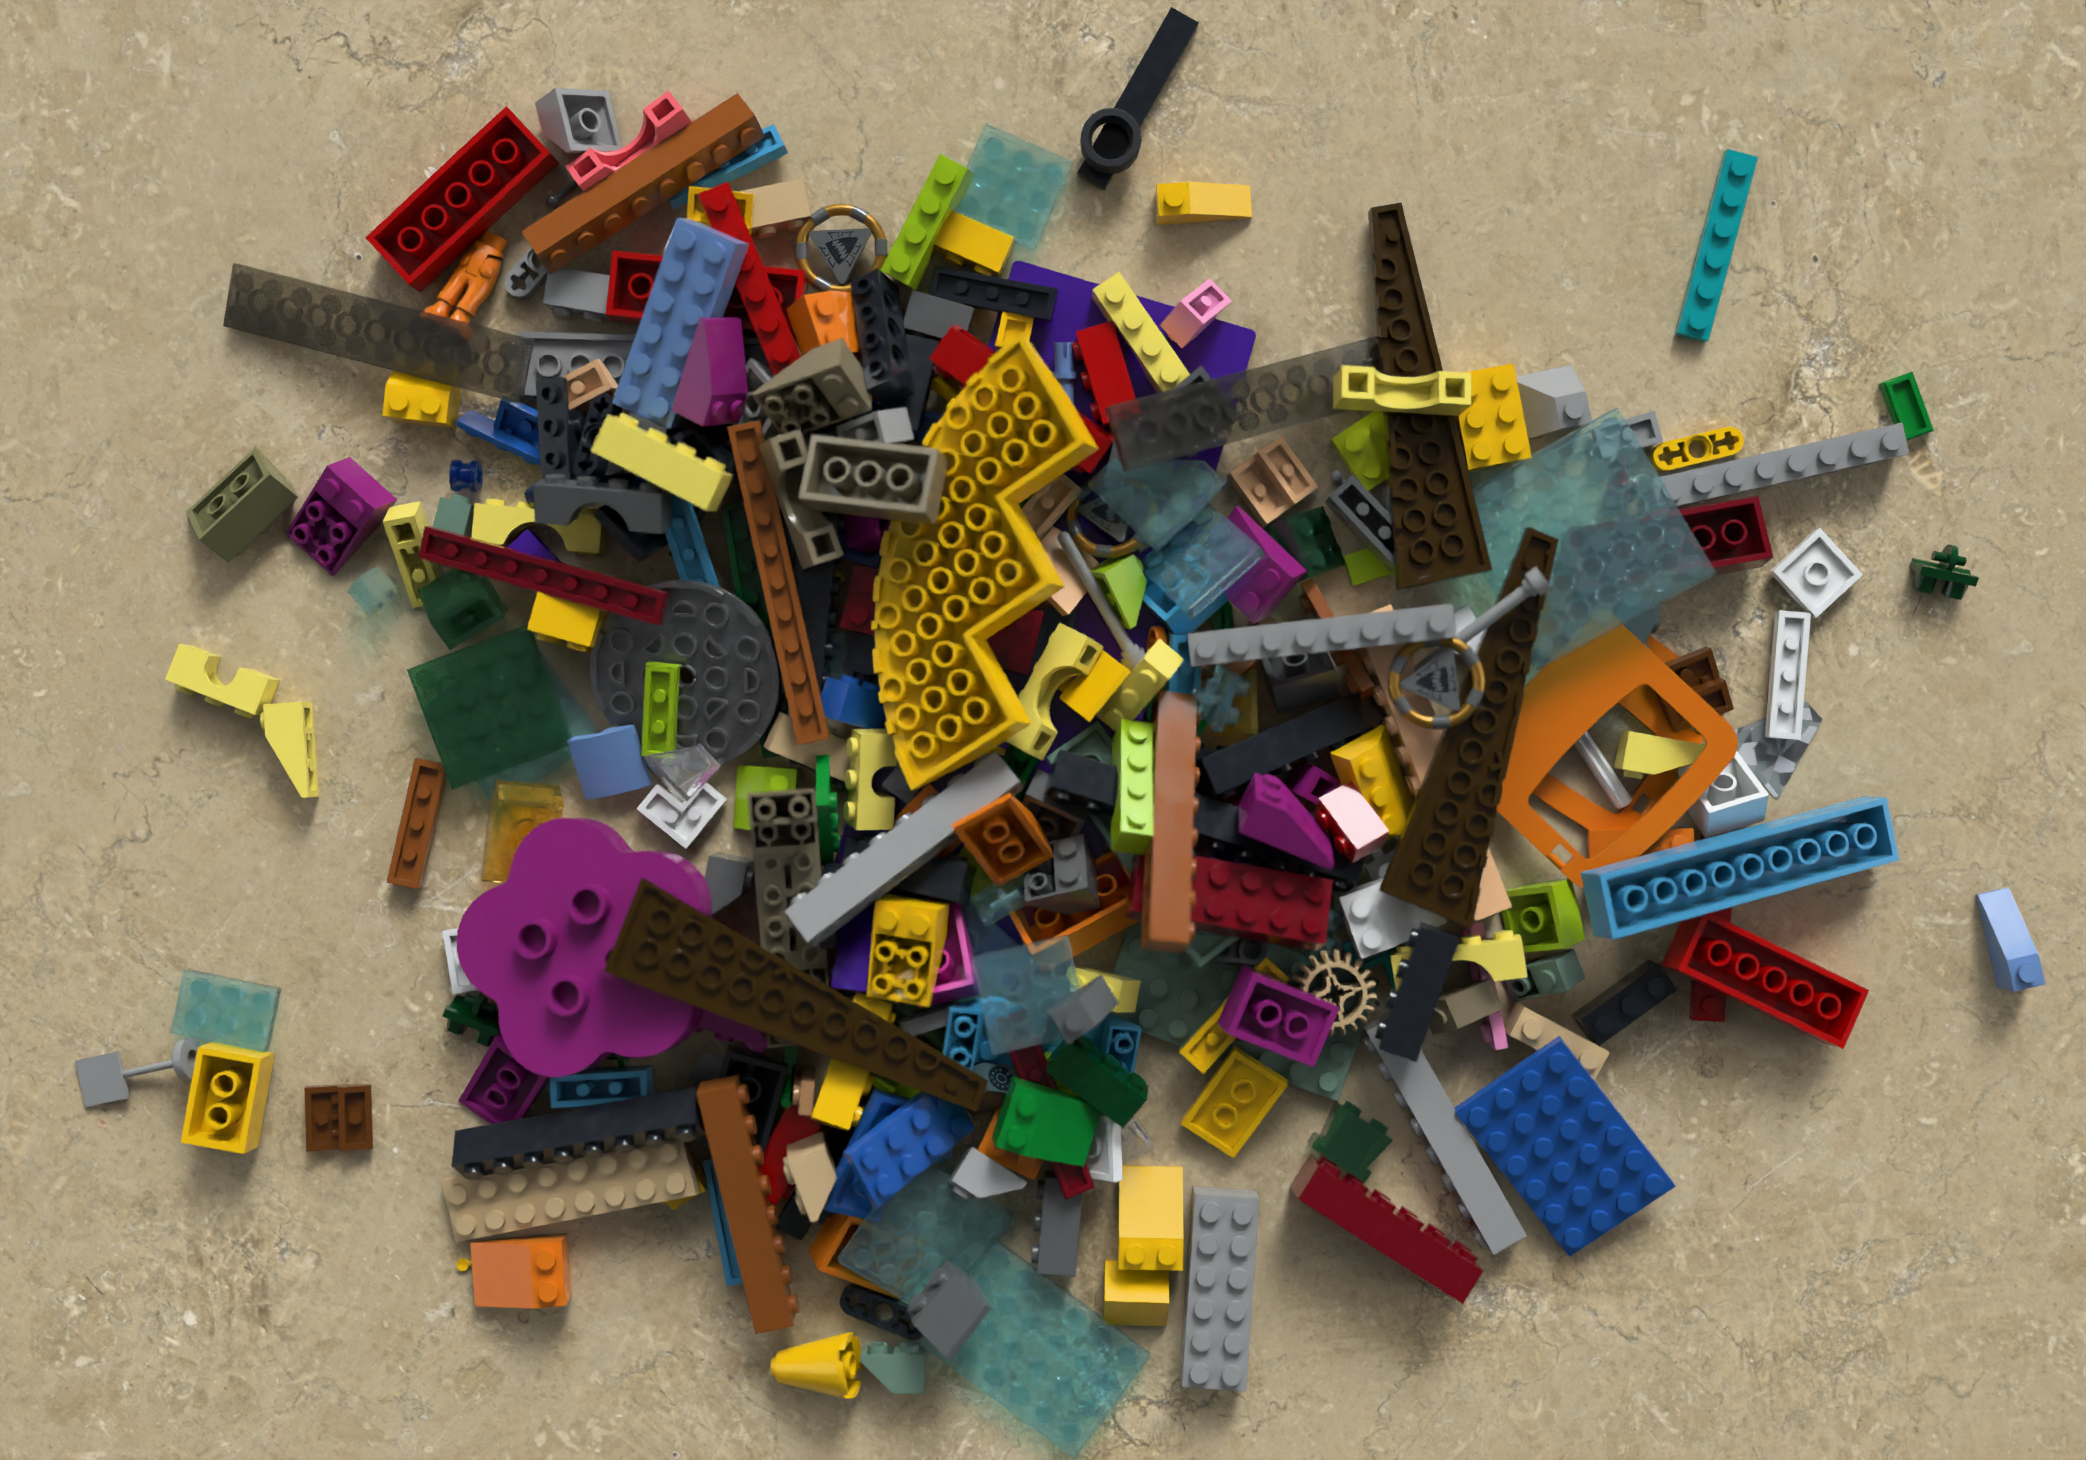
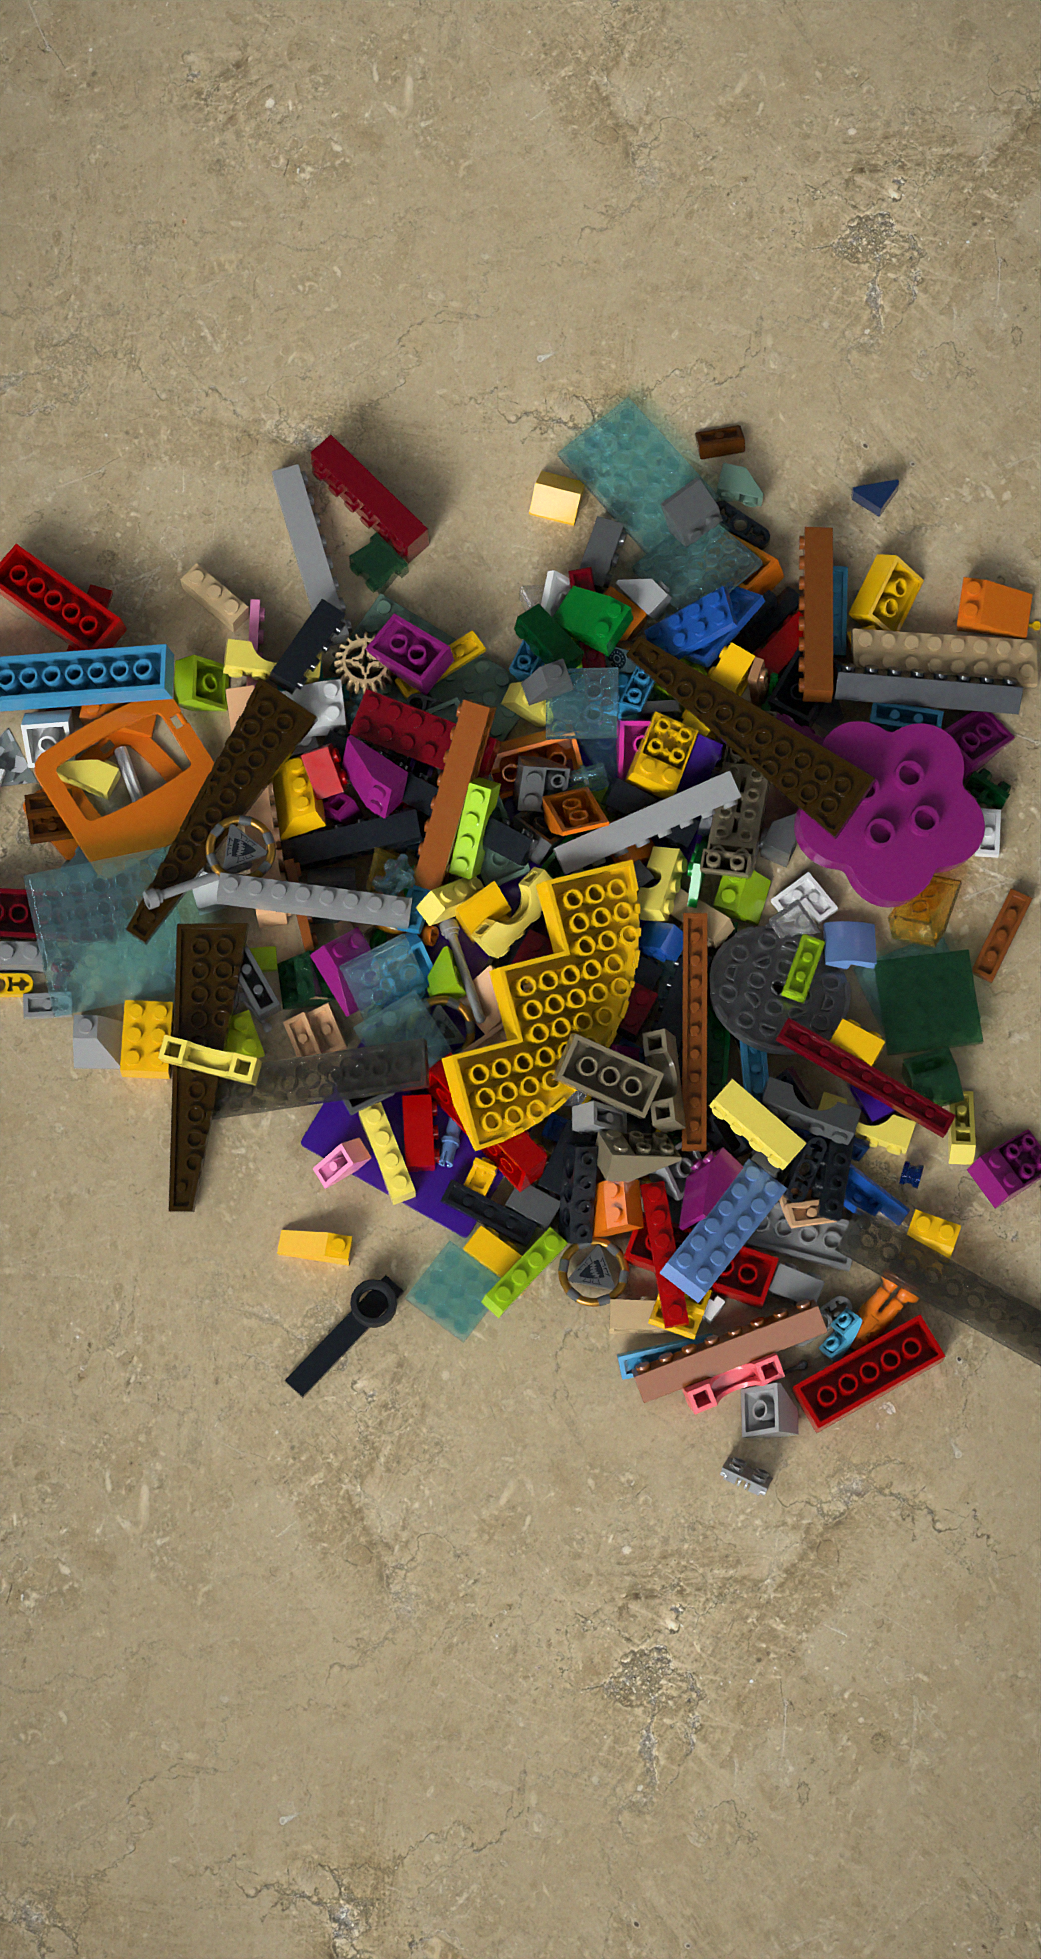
camera: 165 degrees left, 15 degrees down
(373, 590) = (997, 1106): clear light blue piece -> none
(455, 515) = (925, 1146): sand green brick -> none
(506, 242) = (846, 1329): none -> medium azure slope
(587, 33) = (737, 1468): none -> light grey hinge
(667, 1258) = (886, 594): none -> yellow slope
(711, 1395) = (875, 496): none -> dark blue slope
(813, 1171) = (766, 623): tan slope -> none
(821, 1365) = (792, 497): yellow cone -> none
(937, 1424) = (720, 442): none -> reddish brown slope
(1150, 1218) = (534, 543): yellow slope -> none
(1219, 1288) = (497, 486): light grey brick -> none
(1234, 1102) = (455, 608): yellow plate -> none
(1464, 1005) = (274, 634): dark tan slope -> none
(1547, 976) = (207, 642): sand green slope -> none
(1564, 1146) = (229, 524): blue plate -> none
(1624, 1002) = (159, 612): black brick -> none

